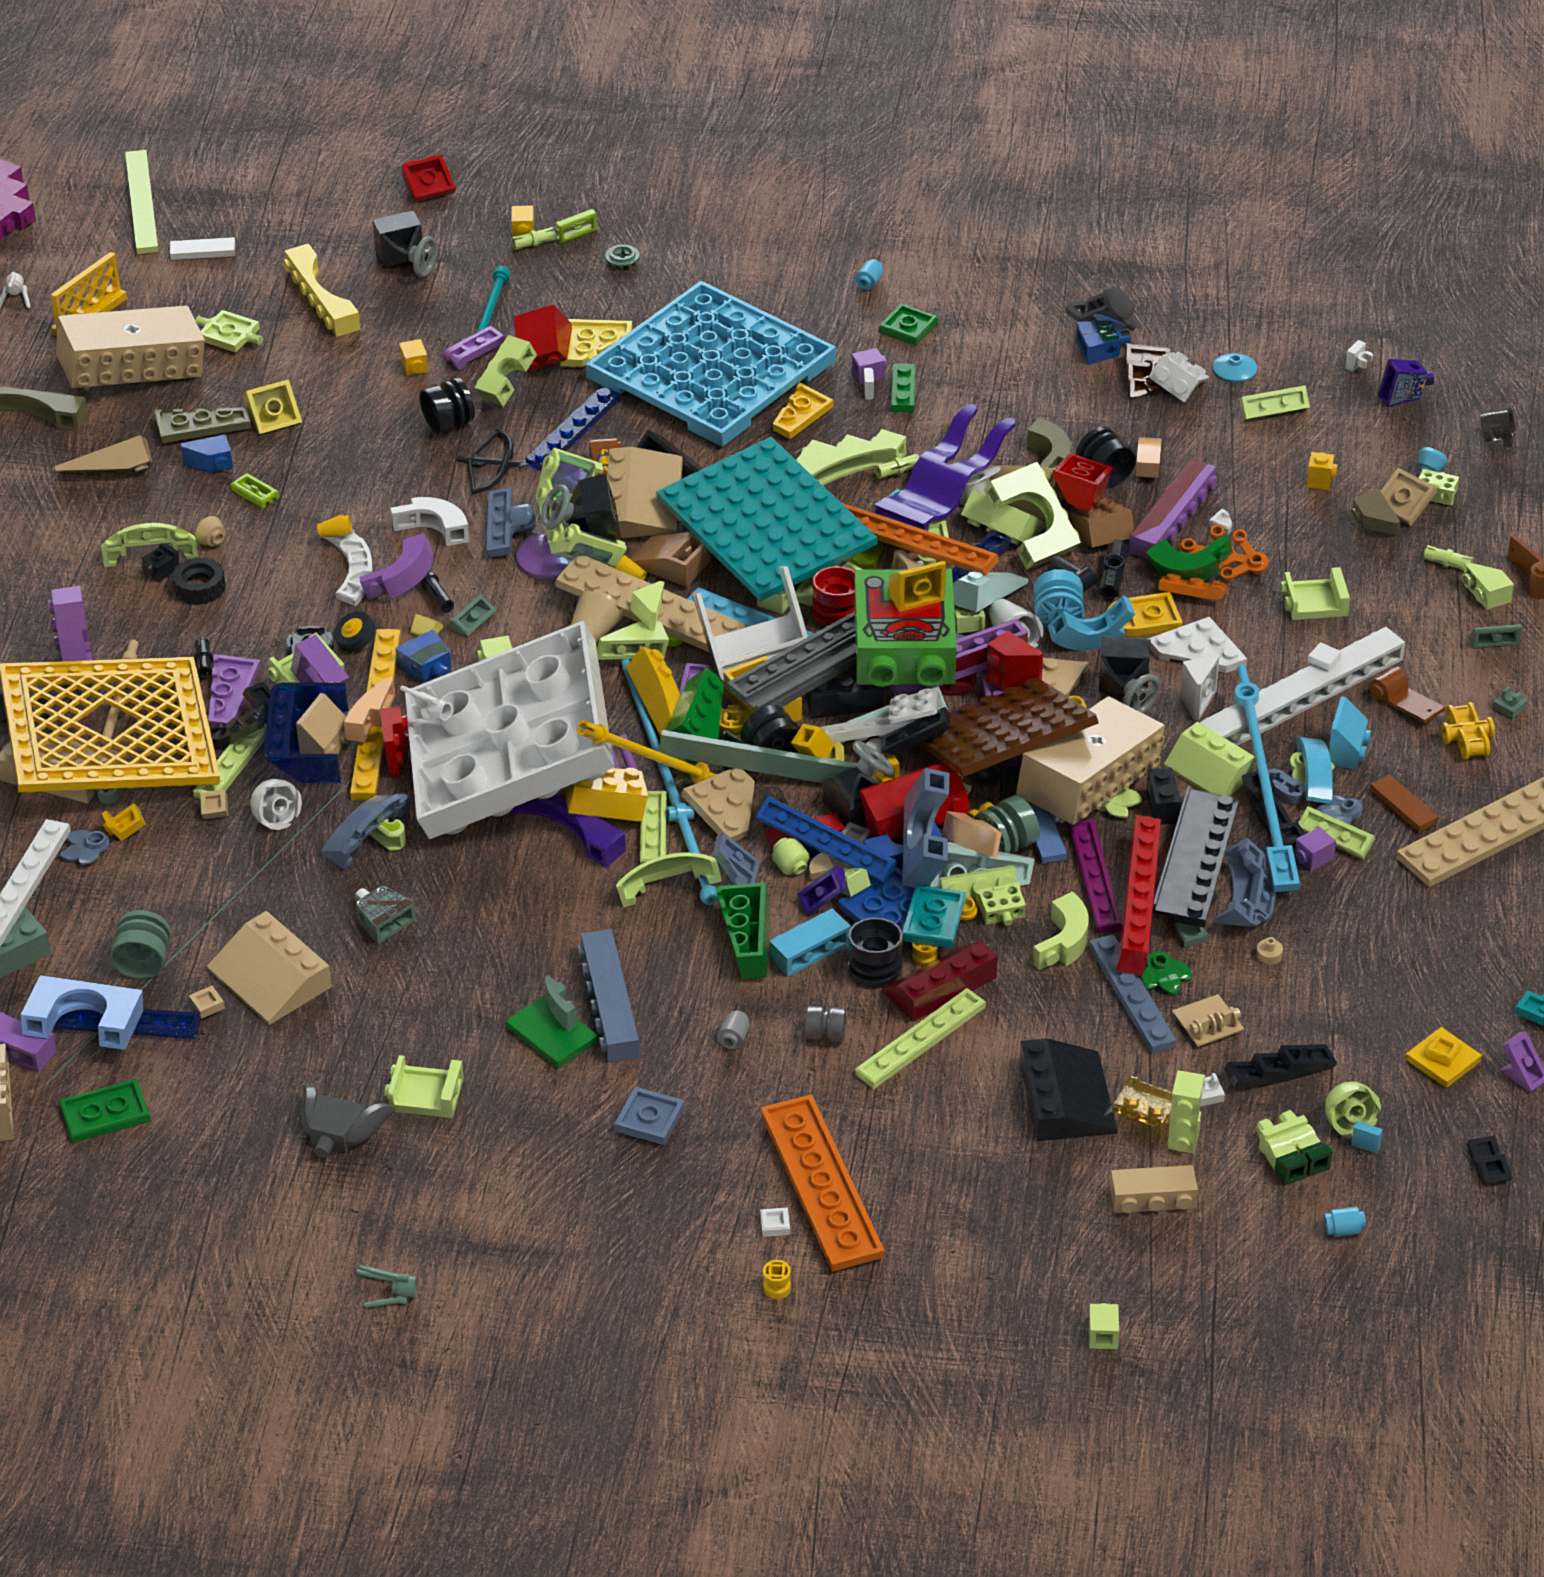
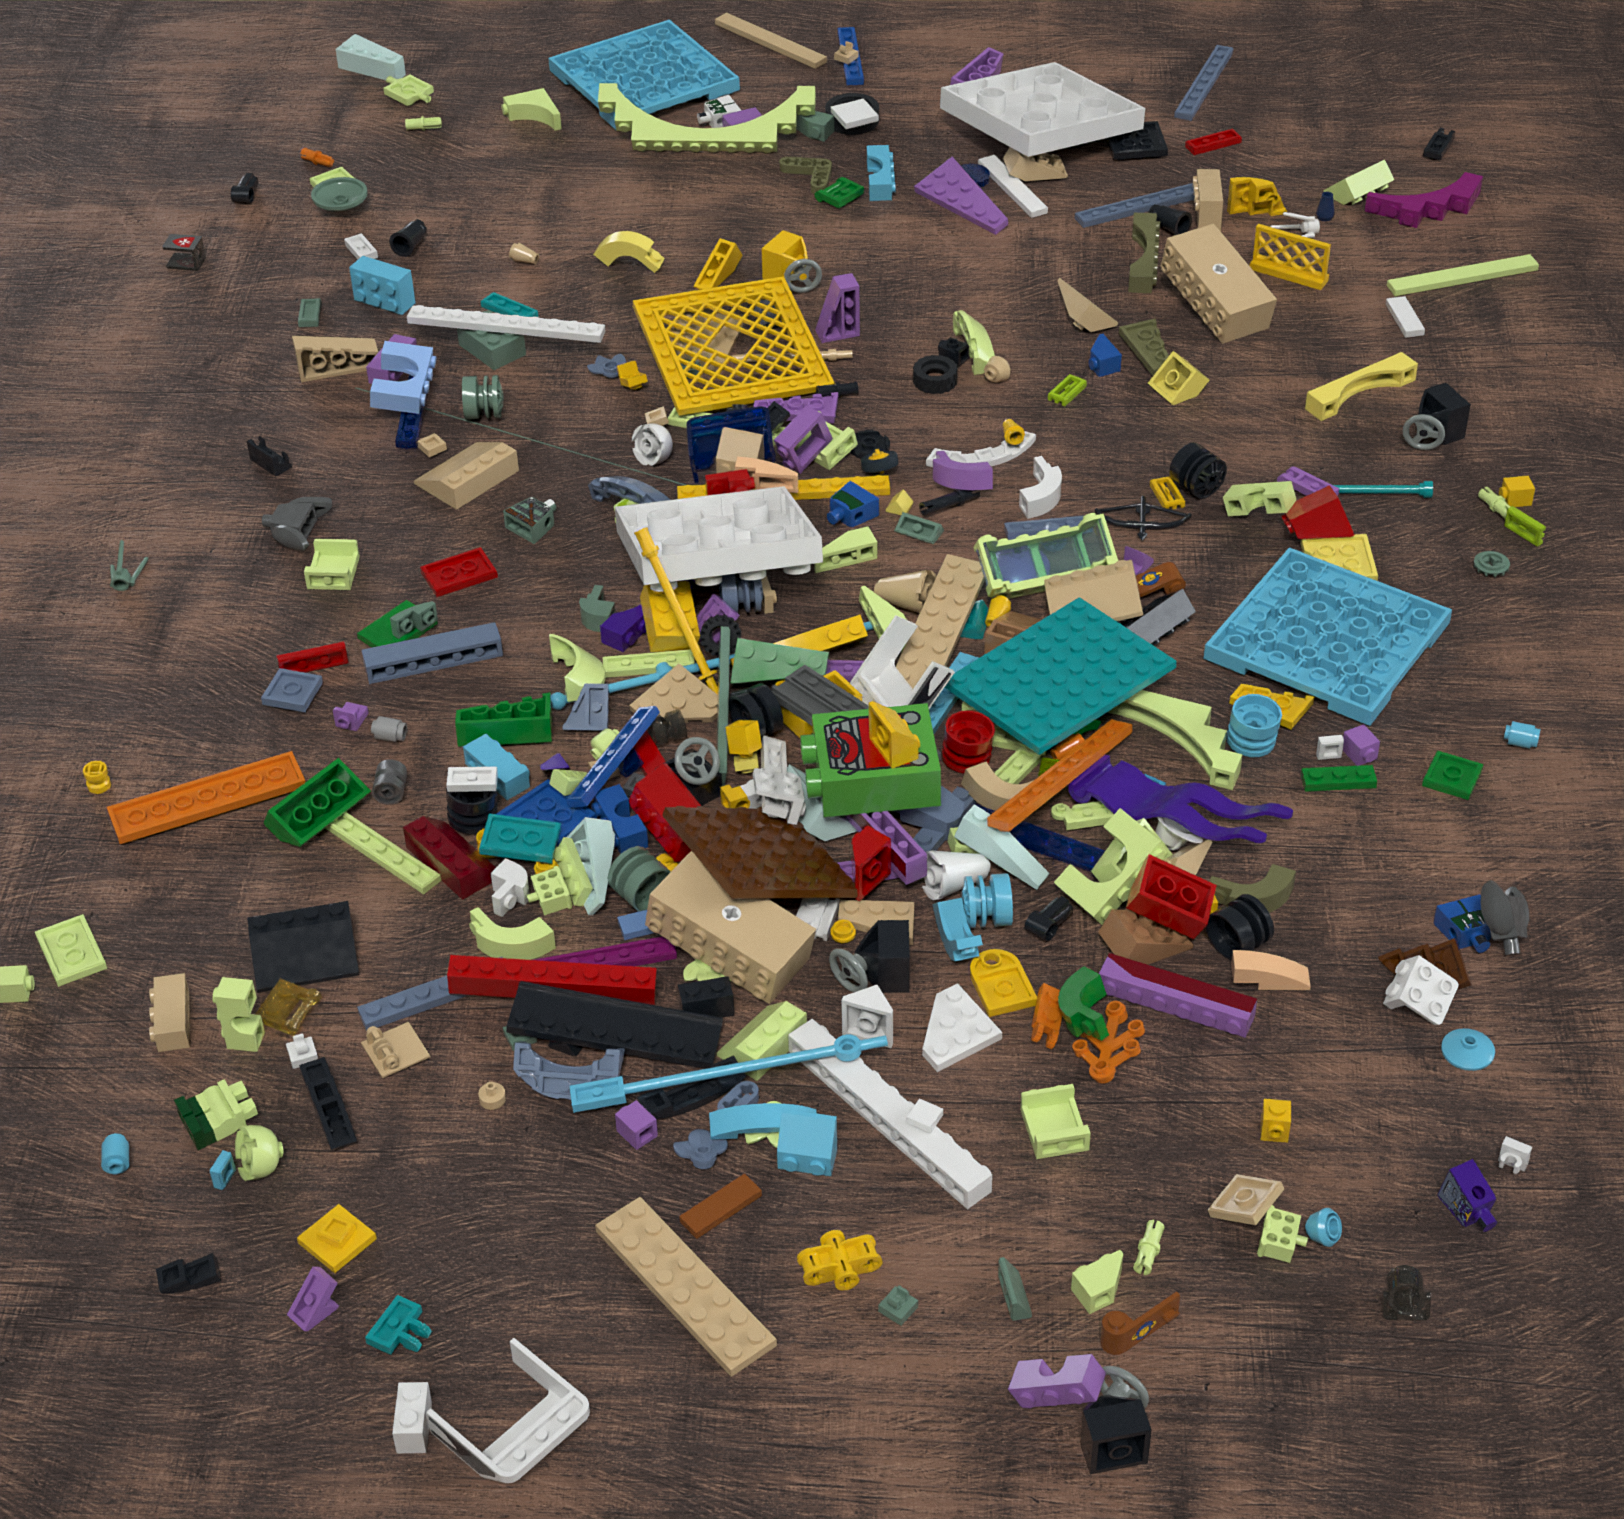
camera: 85 degrees right, 0 degrees up
(104, 1110) = (323, 416): green tile -> none
(187, 1157) = (268, 458): none -> black hinge
(229, 330) = (1283, 344): yellowish green plate -> none
(413, 357) = (1276, 450): yellow brick -> none
(428, 178) = (1562, 424): red plate -> none
(436, 708) = (738, 492): white plant -> none
(457, 441) = (1163, 493): none -> yellow tile
(457, 980) = (458, 572): none -> red tile
(566, 864) = (595, 609): none -> sand green brick
(575, 425) = (1203, 559): clear blue plate -> none
(590, 507) = (1030, 554): black piece -> none
(601, 1097) = (314, 658): none -> red tile
(647, 603) = (919, 611): yellowish green slope -> none
(647, 766) = (713, 623): none -> black tyre
(700, 1067) = (350, 716): none -> medium lavender bracket
(775, 1222) = (168, 776): white tile -> none
(841, 414) = (1254, 725): none -> medium azure wheel
(856, 1081) = (316, 804): none -> green slope
(872, 927) = (472, 779): none -> white plate
(896, 466) = (1196, 775): yellowish green pin -> none
(915, 733) = (747, 797): black plate -> none
(922, 852) = (631, 800): sand blue arch -> none
(971, 833) = (611, 846): light nougat slope -> none
(994, 928) = (510, 886): none -> white brick
(1046, 1288) = (70, 950): none -> yellowish green tile
(1113, 569) = (1062, 949): black piece -> none
(1165, 975) = (458, 1015): green plate -> none
(1222, 518) = (1174, 1043): white tile -> none
(1274, 402) = (1398, 1079): yellowish green plate -> none
(1347, 837) = (665, 1144): yellowish green tile -> none
(1375, 513) = (1208, 1172): dark tan slope -> none
(1393, 690) = (904, 1196): dark orange door -> none

